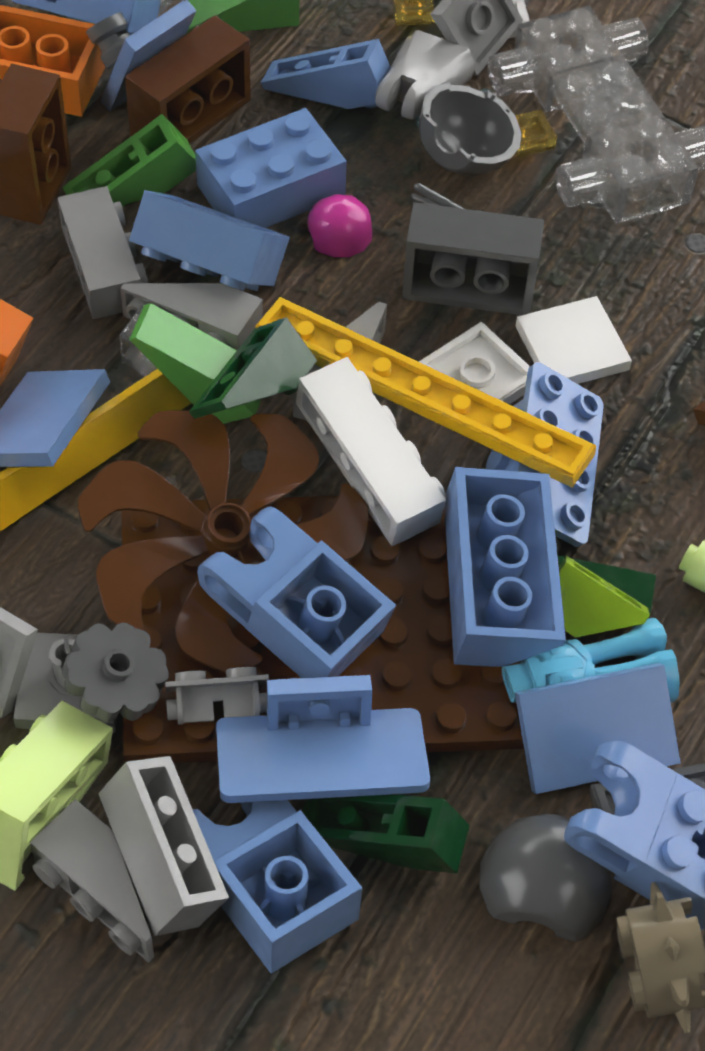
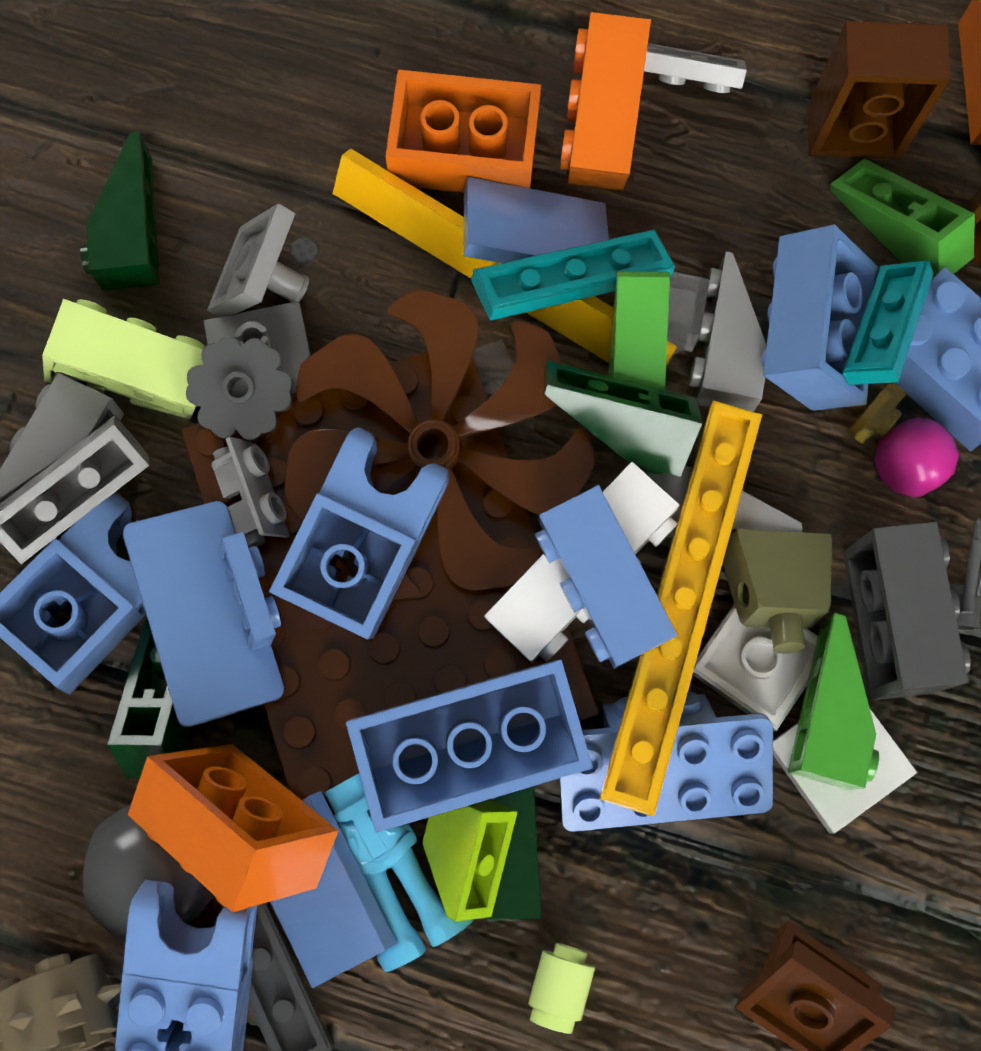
camera: 75 degrees right, 20 degrees up
(99, 248) = (801, 201): light grey brick -> none
(106, 389) = (567, 274): none -> teal tile
(233, 193) = (888, 323): none -> teal tile
(302, 236) = (879, 414): none -> clear yellow plate
(397, 414) = (604, 578): none -> medium blue brick
(426, 327) = (780, 582): none -> olive torso
(531, 756) = (232, 825): none -> orange brick
(539, 324) = (835, 720): none -> bright green slope

